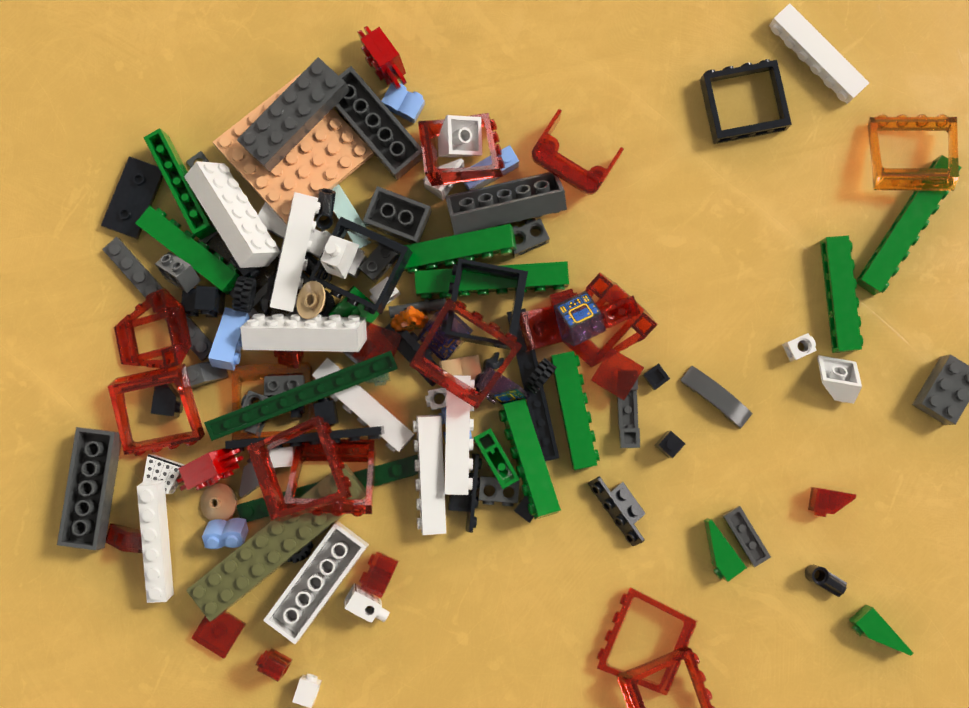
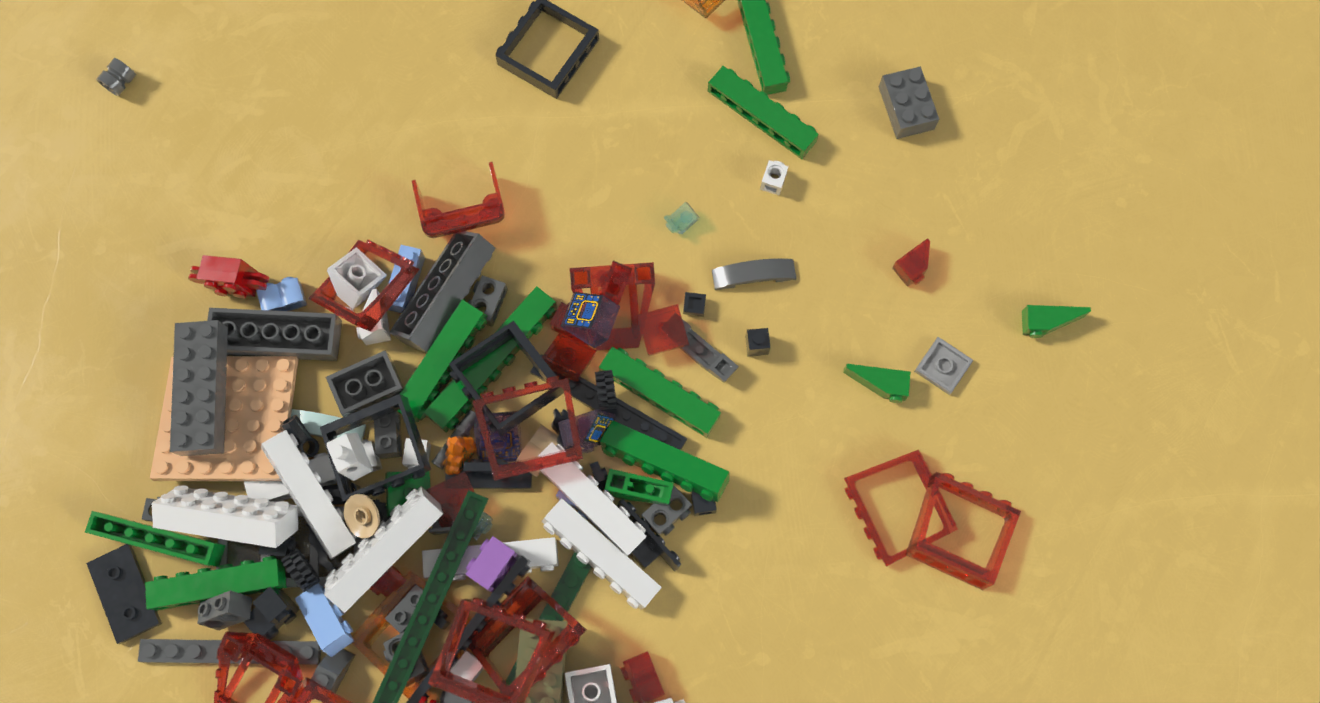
camera: 50 degrees left, 10 degrees down
(326, 410) = (464, 591): black brick -> none
(357, 413) = (491, 564): none -> medium lavender brick
(430, 398) = (539, 498): white brick -> none
(481, 424) = (599, 474): none -> black plate
(621, 507) = (773, 427): black bracket -> none
(708, 312) = (681, 219): none -> clear light blue bracket
(746, 536) = (885, 350): dark grey plate -> none
(773, 585) = (943, 365): none -> light grey tile
(826, 580) = (975, 322): black piece -> none
(840, 378) = (827, 169): white slope -> none

